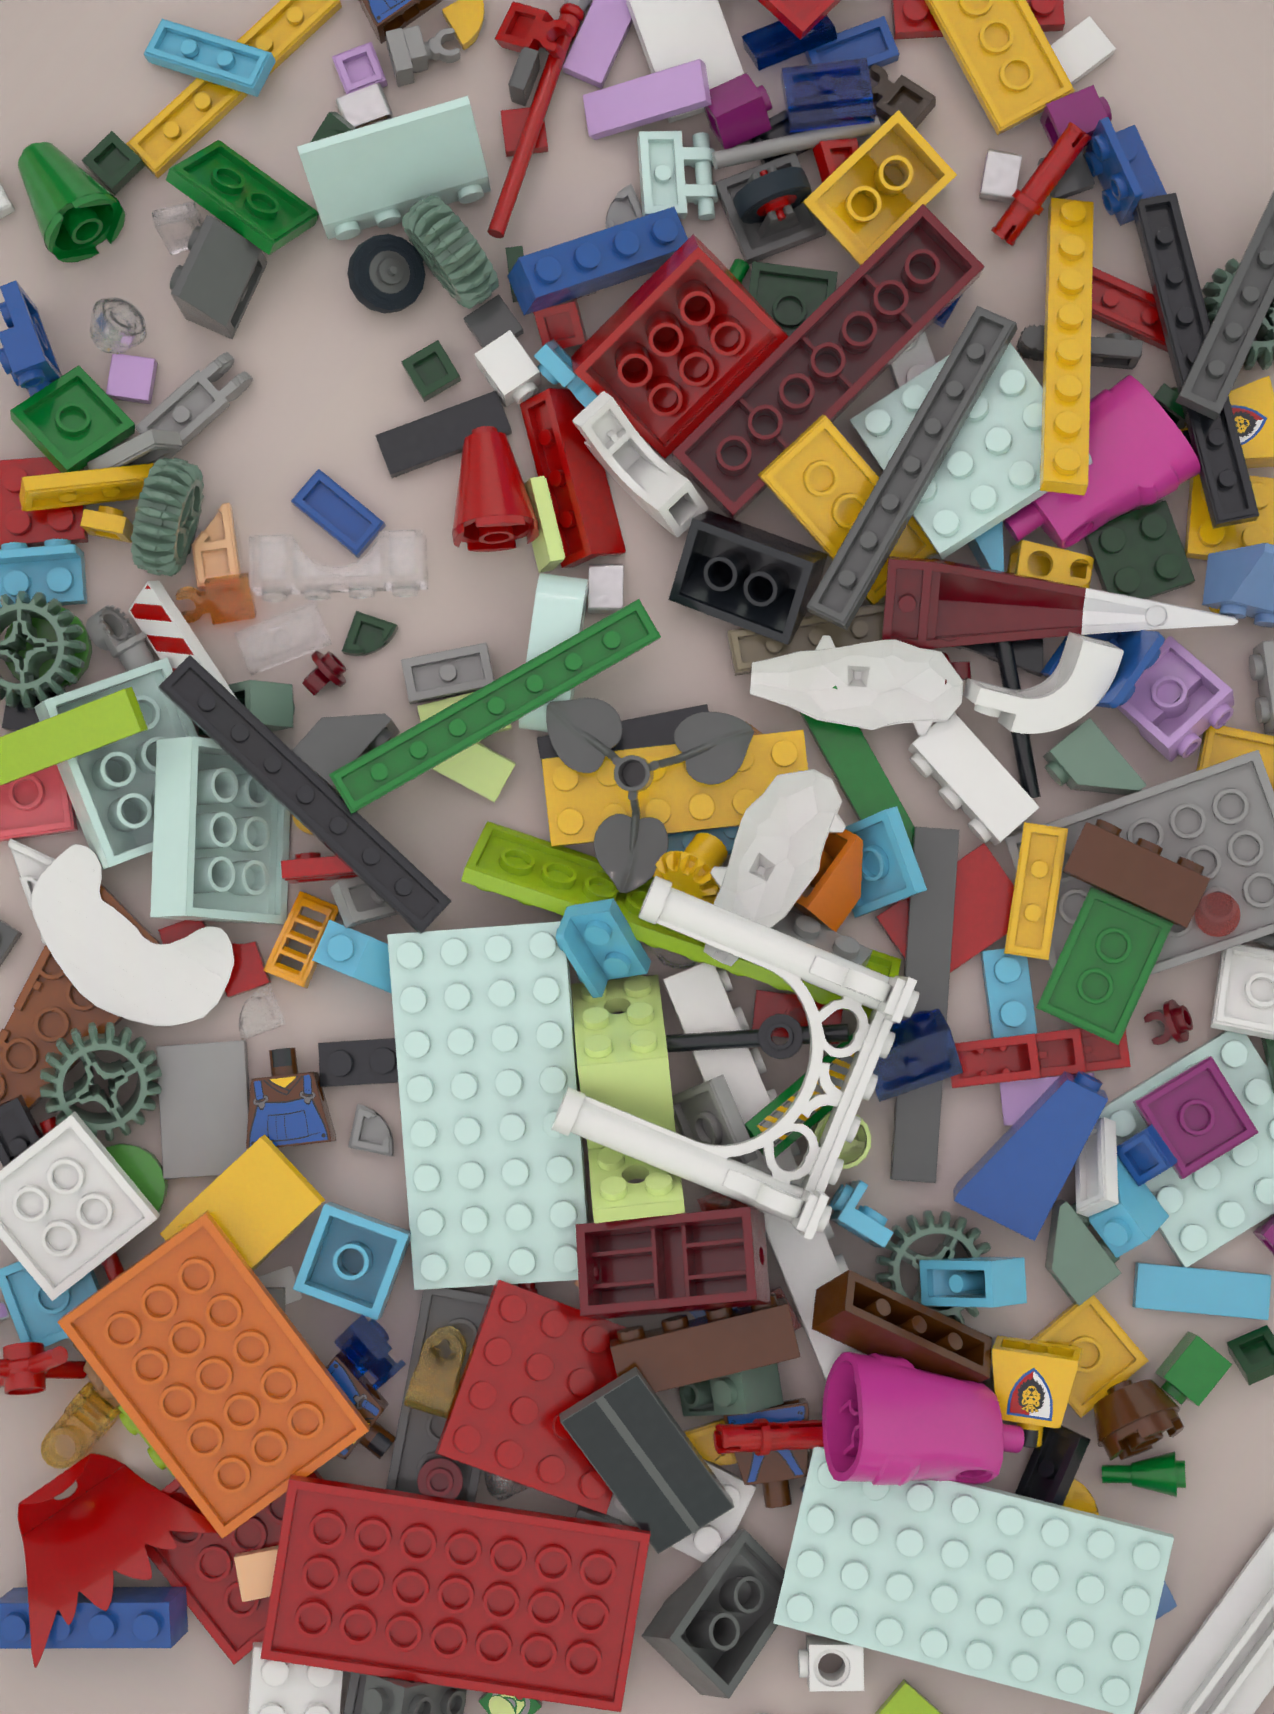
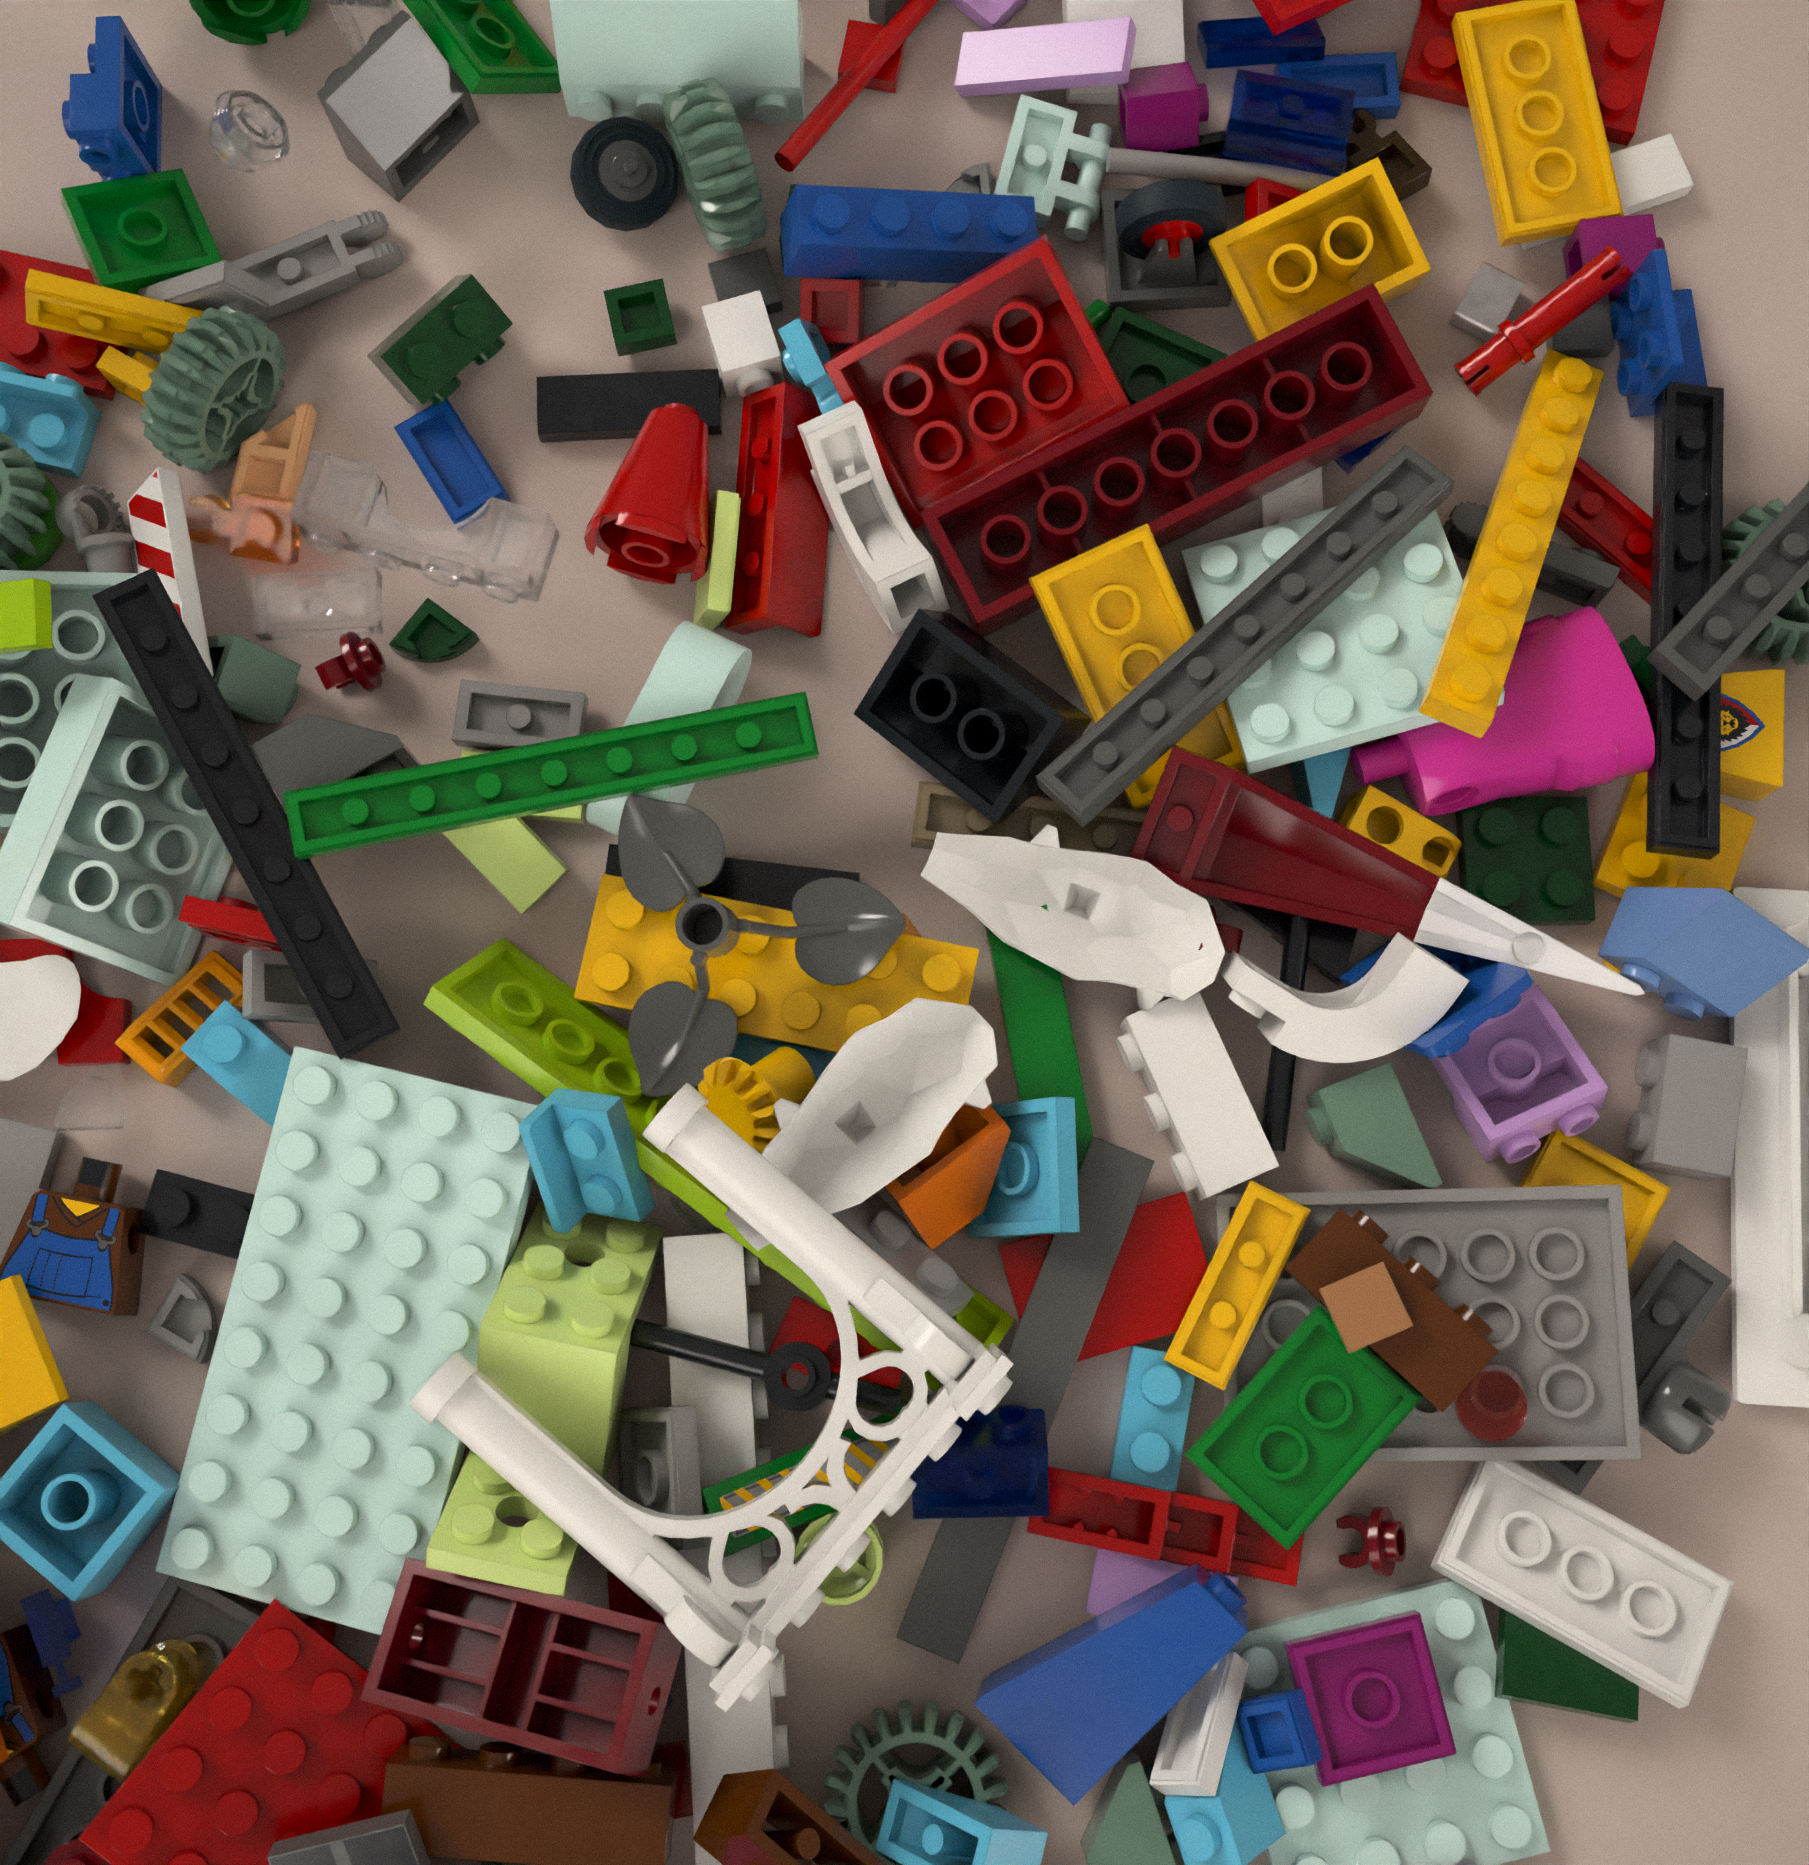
camera: 15 degrees right, 5 degrees down
(131, 378) = (246, 208): lavender tile -> none
(305, 432) = (441, 340): none -> dark green brick
(605, 588) = (775, 669): flat silver piece -> none
(862, 1222) = (832, 1691): medium azure bracket -> none
(1120, 878) = (1365, 1307): none -> medium nougat tile

